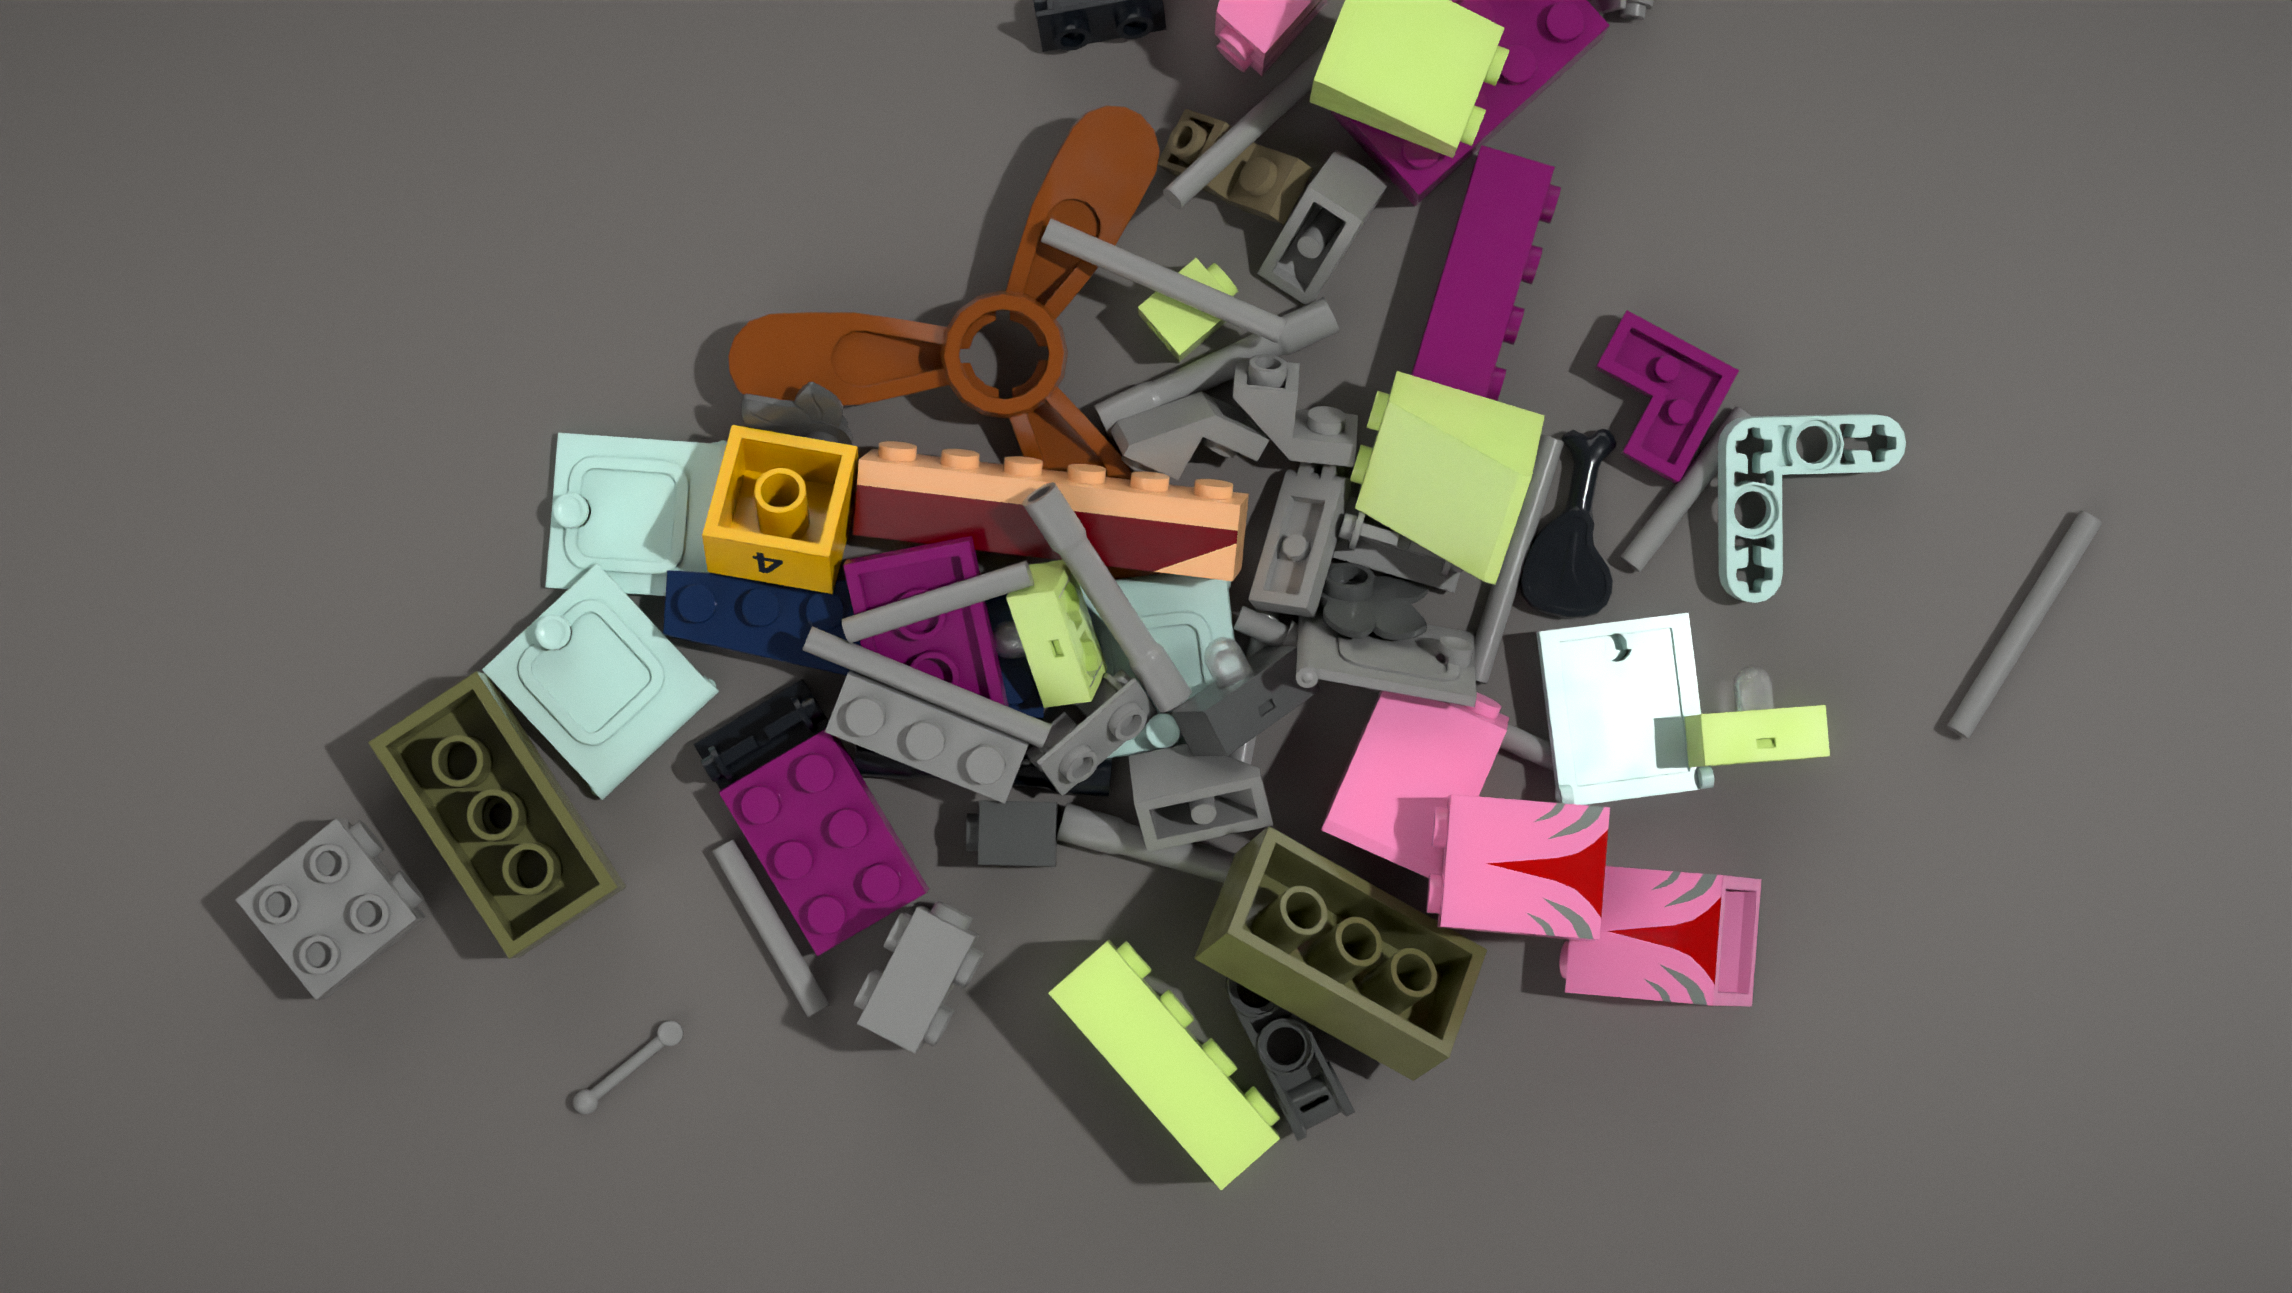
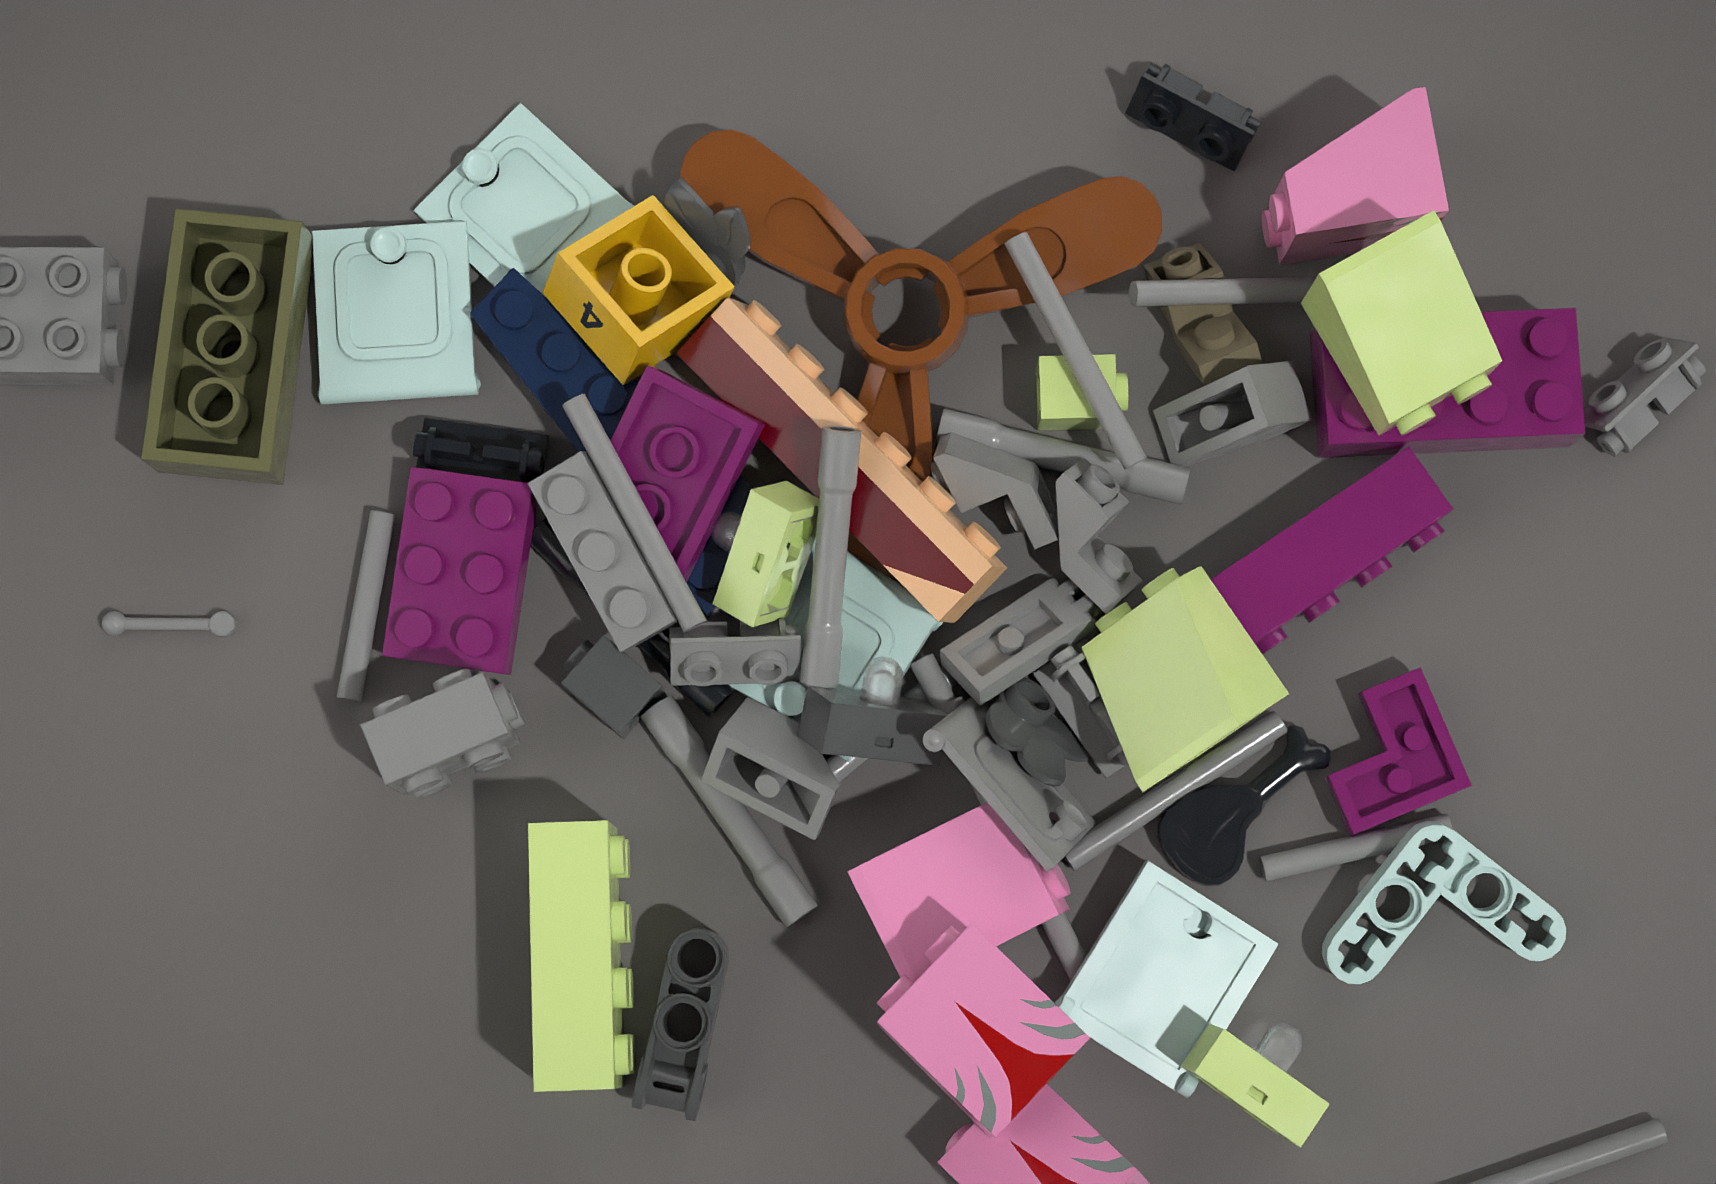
camera: 35 degrees right, 5 degrees down
(937, 602) = (696, 451): light grey bar -> none
(1341, 954) = (784, 985): olive brick -> none

